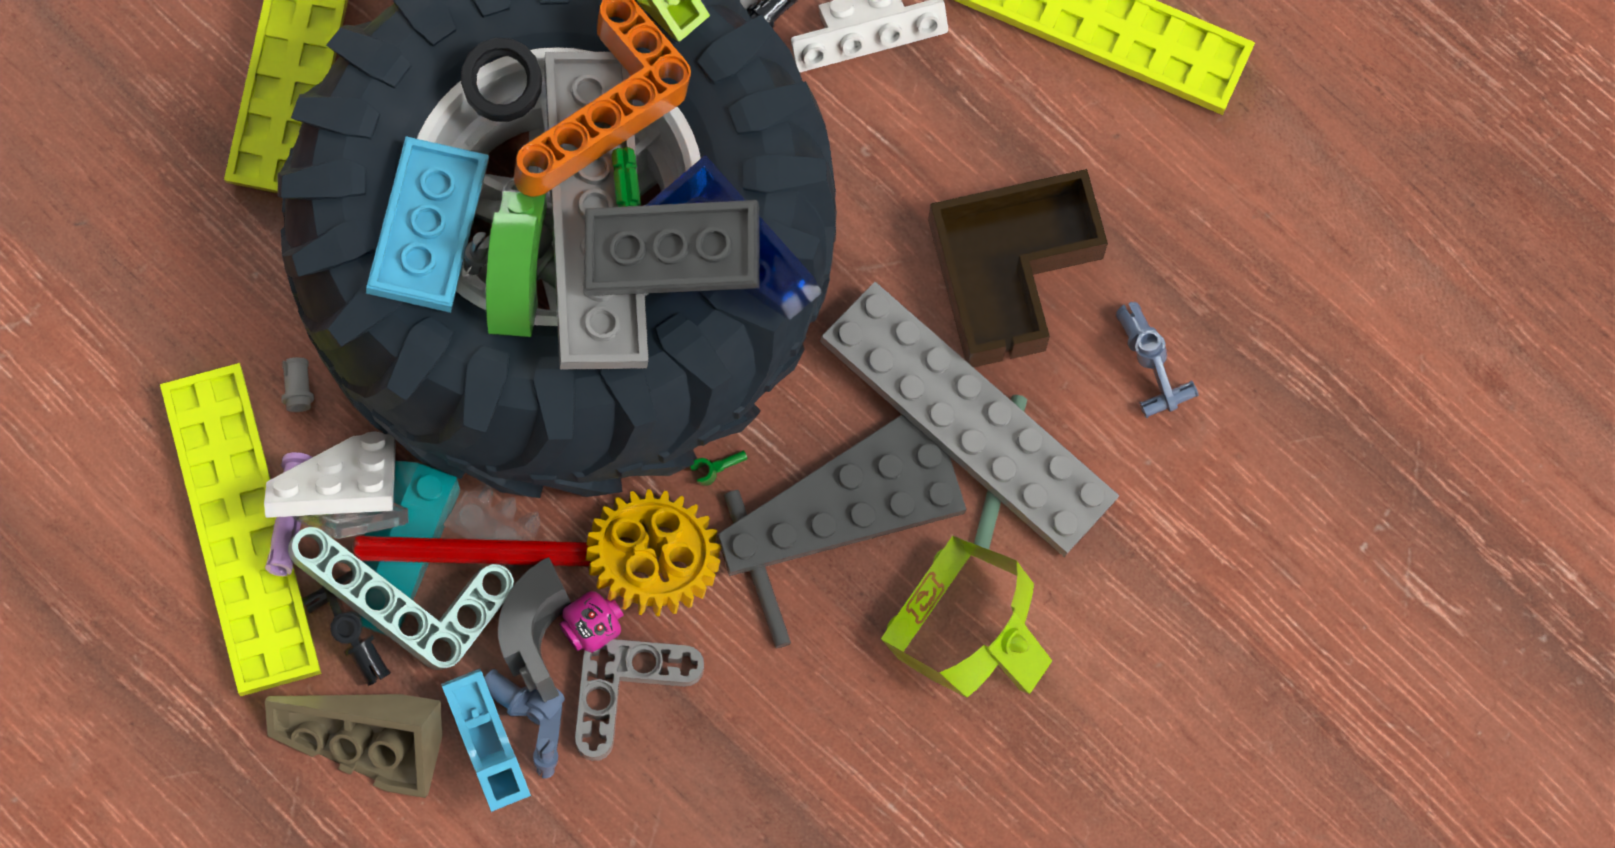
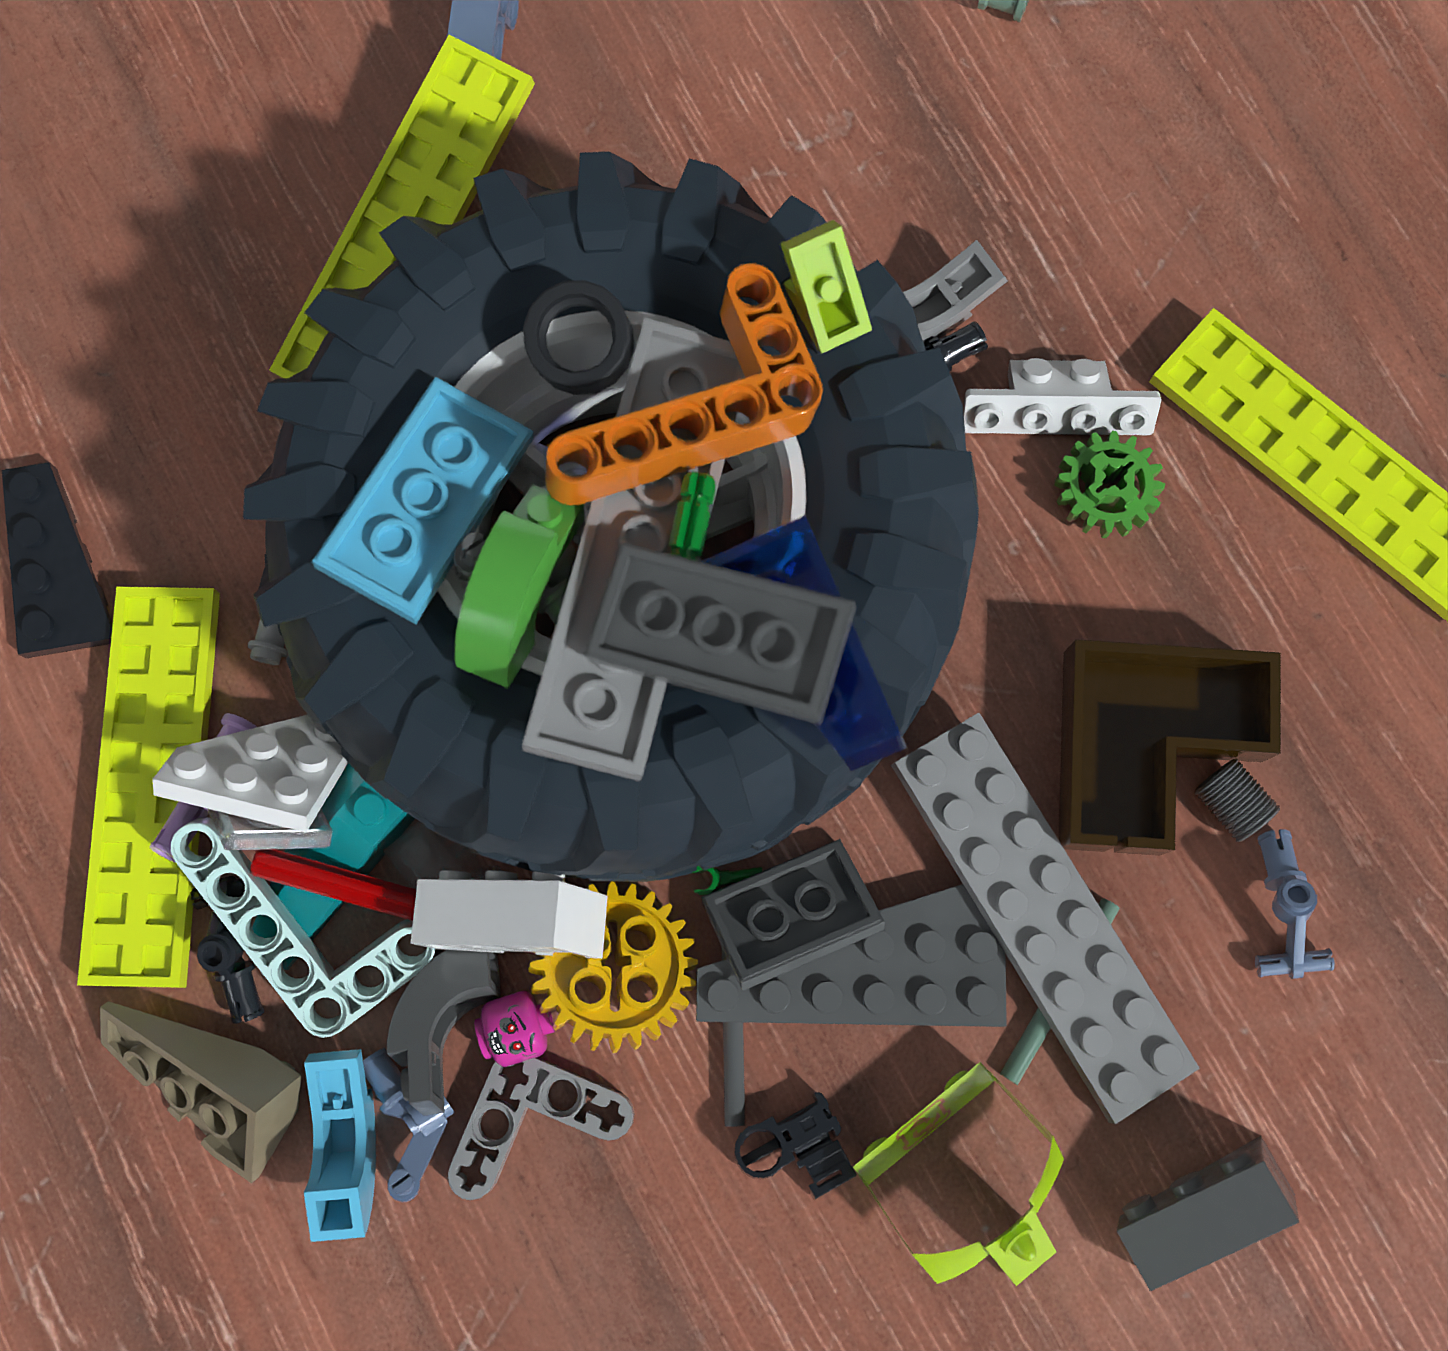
camera: 25 degrees right, 5 degrees up
(99, 393) = (50, 567): none -> black wing
(564, 525) = (508, 914): none -> white wedge
(778, 473) = (792, 914): none -> dark grey tile
(843, 638) = (809, 1142): none -> black piece
(916, 65) = (1119, 499): none -> bright green gear
(1090, 290) = (1237, 800): none -> dark grey piece
(1150, 593) = (1208, 1215): none -> dark grey wedge

